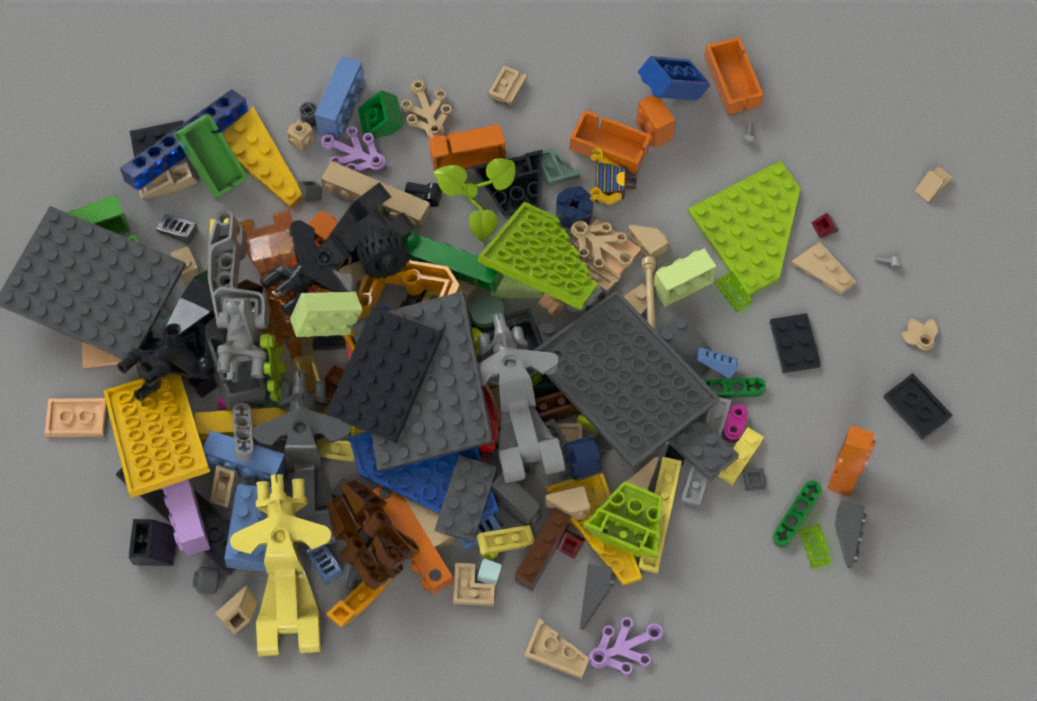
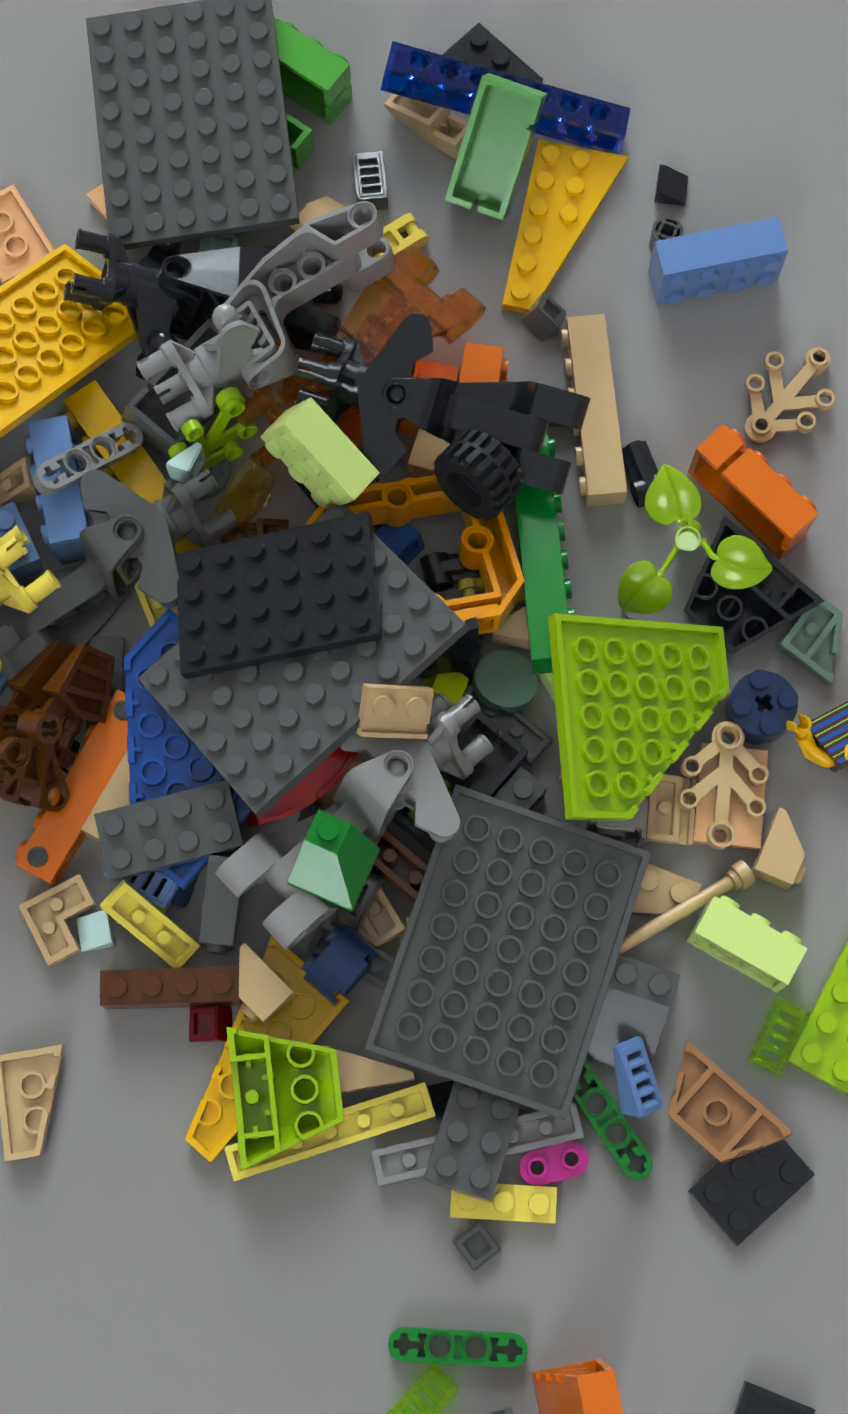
camera: 60 degrees right, 10 degrees up
(281, 385) = (186, 464): none -> light aqua slope
(282, 98) = (670, 186): none -> black slope
(300, 135) = (622, 247): tan brick -> none
(355, 153) = (647, 341): lavender plant -> none
(380, 115) = (731, 336): green slope -> none
(483, 348) = (395, 711): none -> tan plate
(535, 422) = (333, 861): none -> green slope
(596, 589) = (157, 1102): dark grey slope -> none
(622, 647) = (88, 1194): lavender plant -> none
(754, 335) = (720, 1111): none -> medium nougat wing

